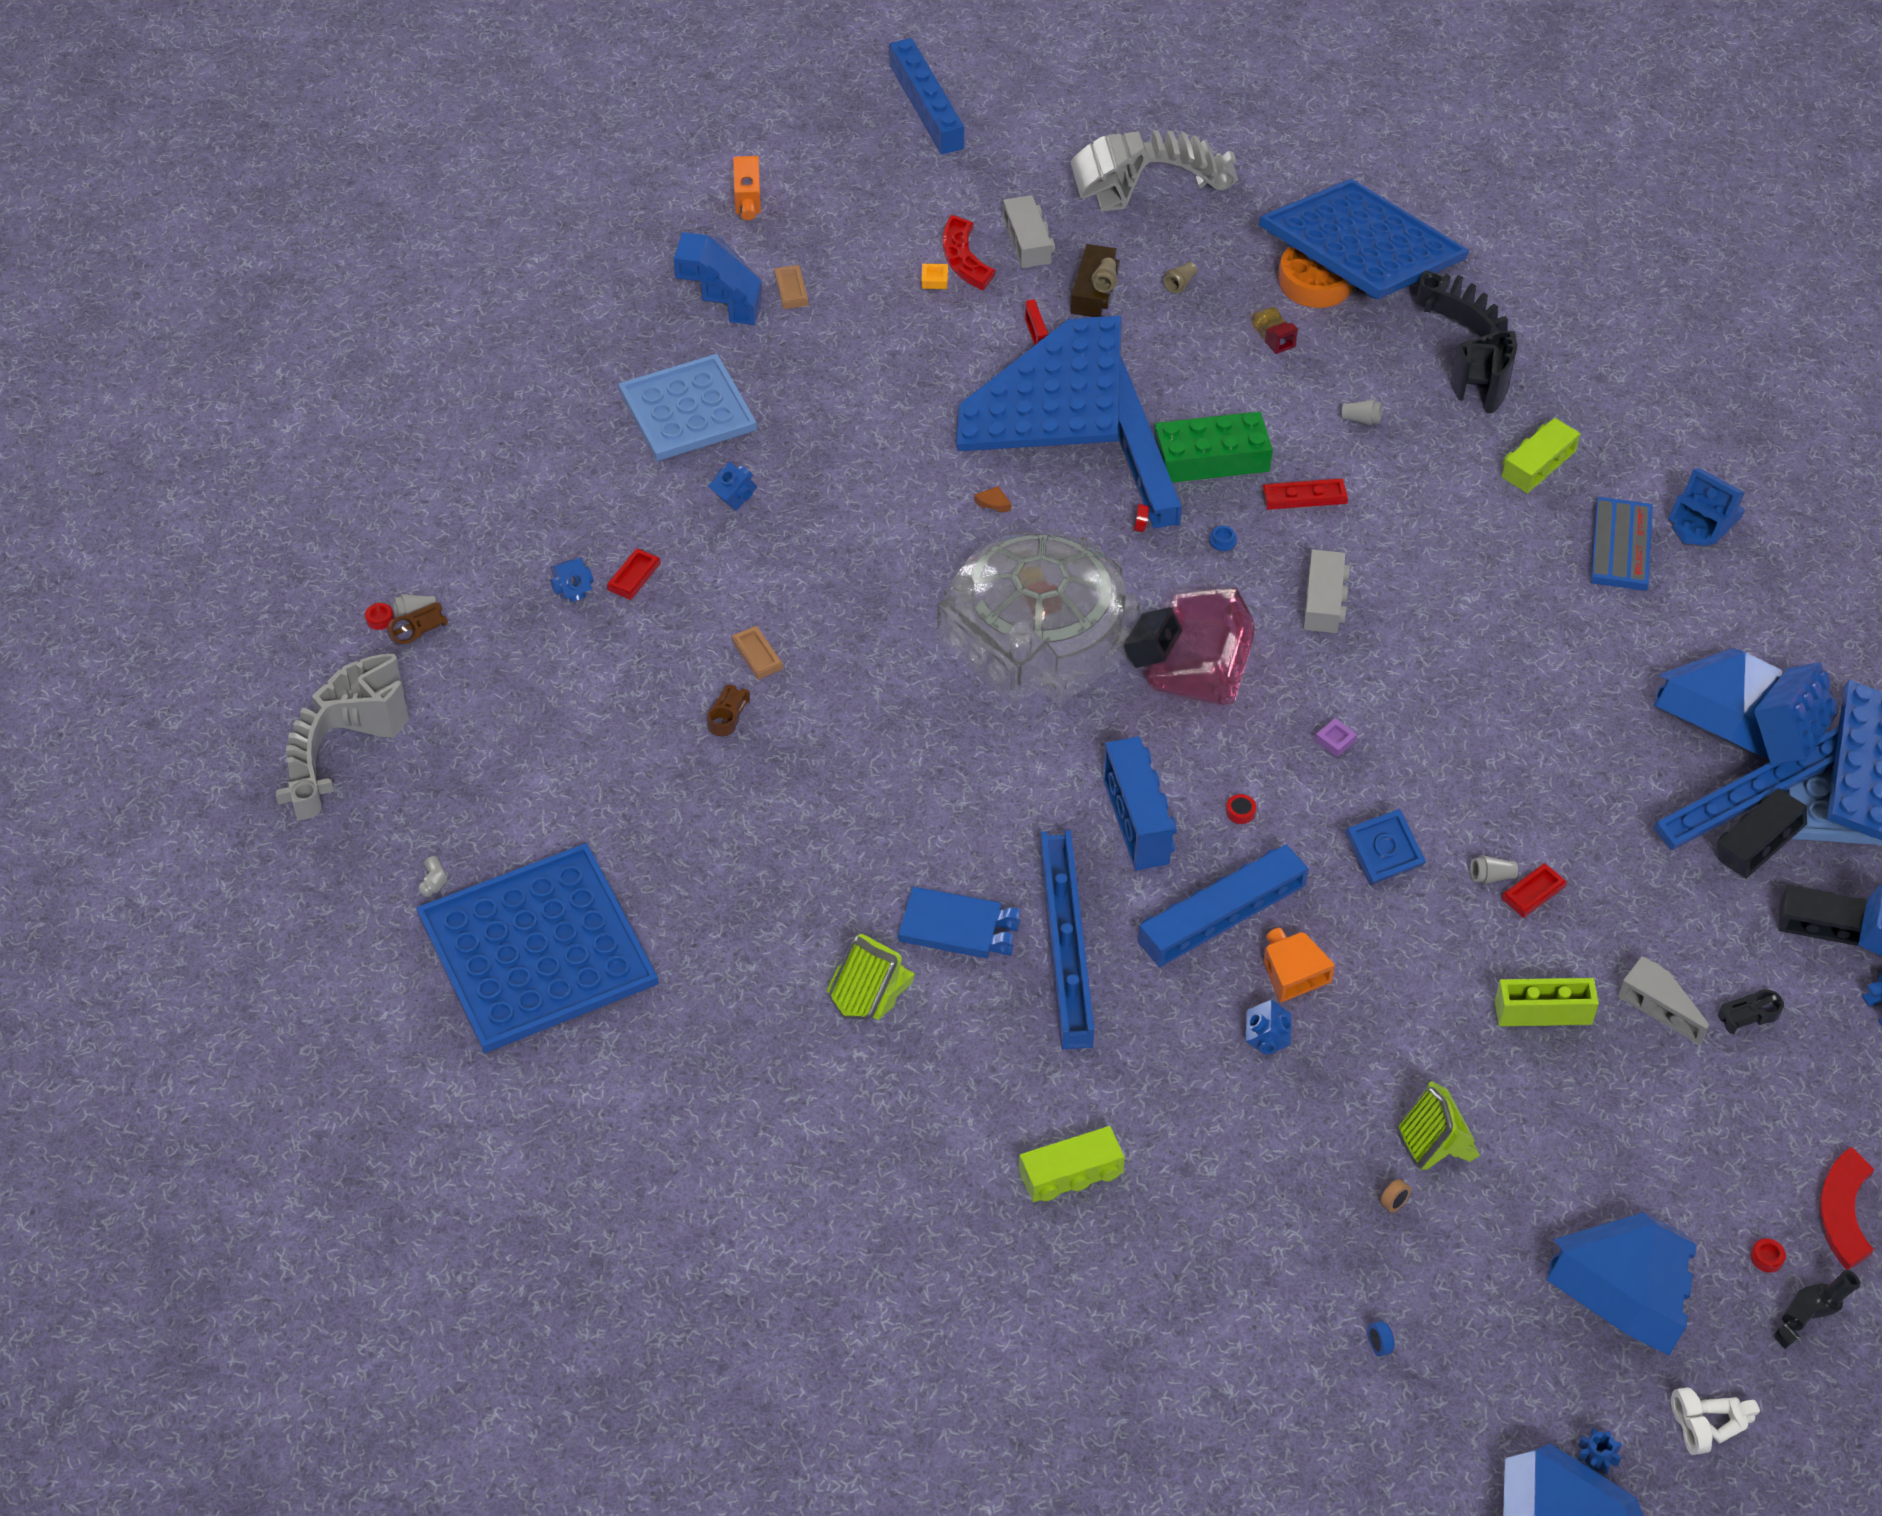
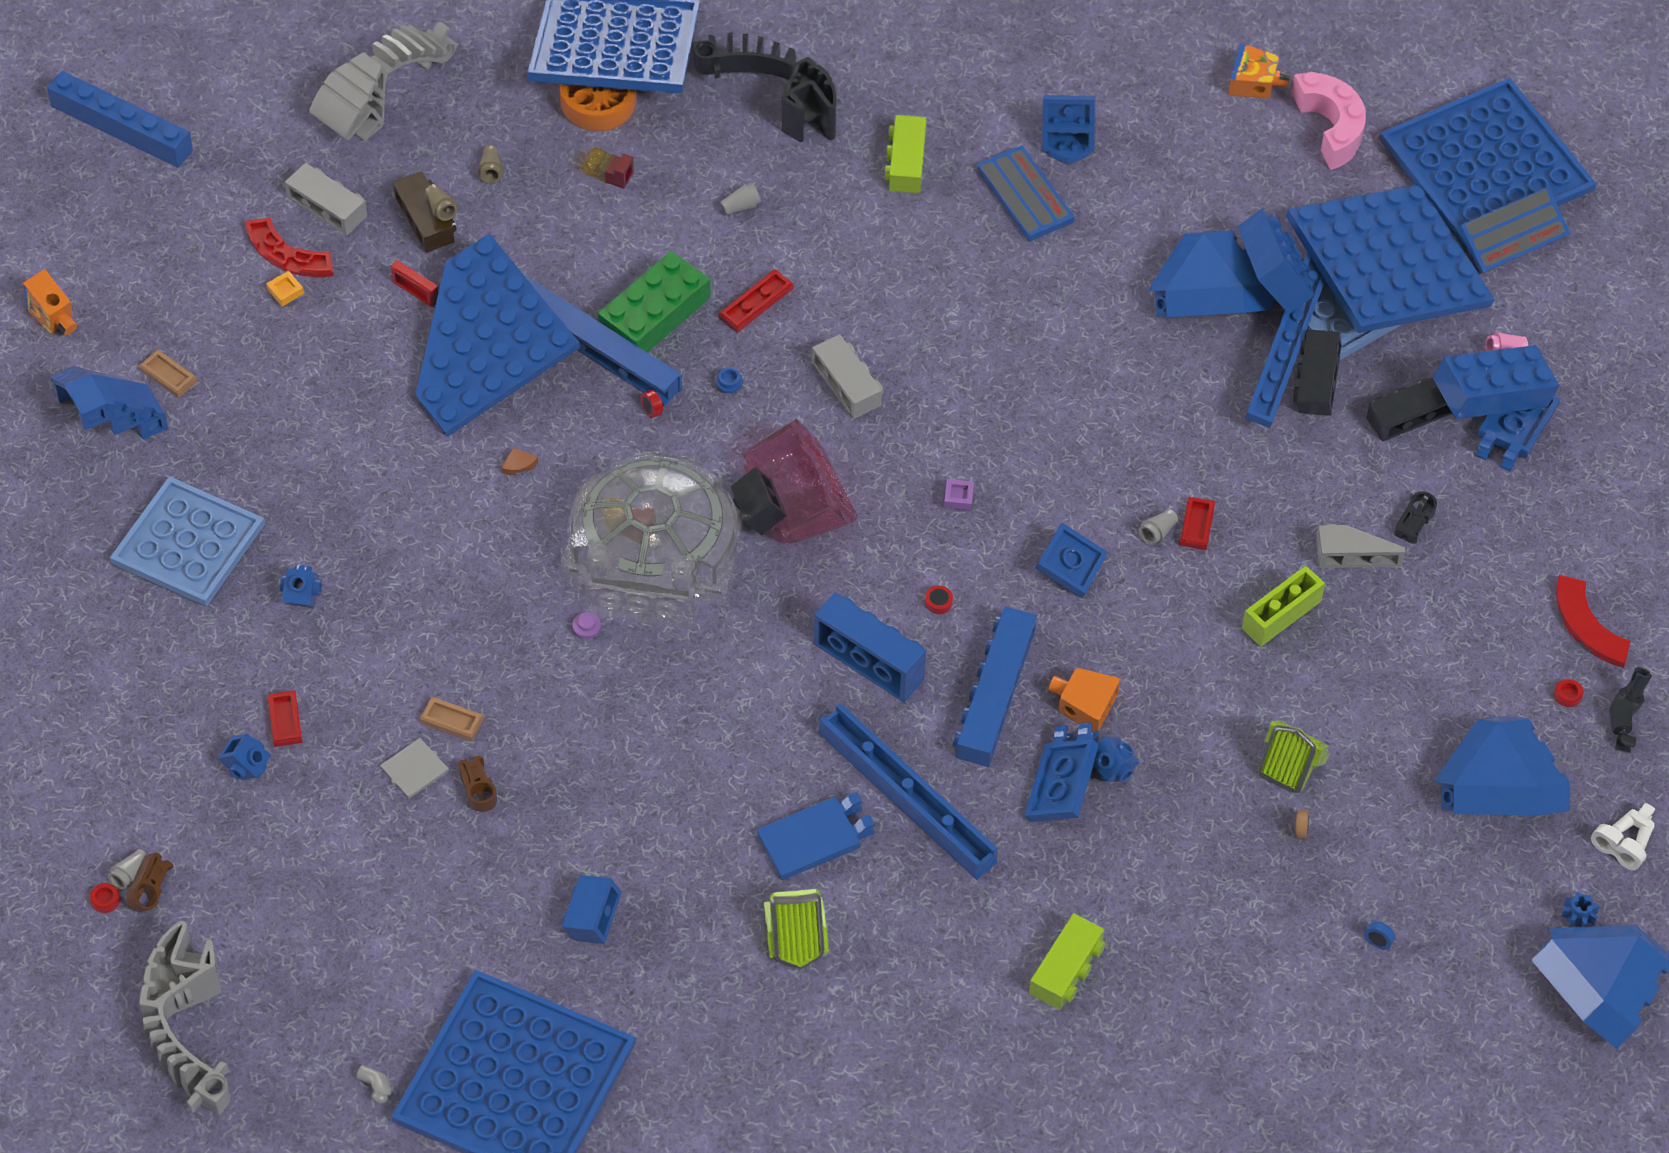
camera: 40 degrees left, 5 degrees up
(694, 670) = (414, 768): none -> light grey piece
(718, 857) = (591, 909): none -> blue brick
(928, 649) = (586, 625): none -> medium lavender plate
(1212, 1010) = (1063, 775): none -> blue tile

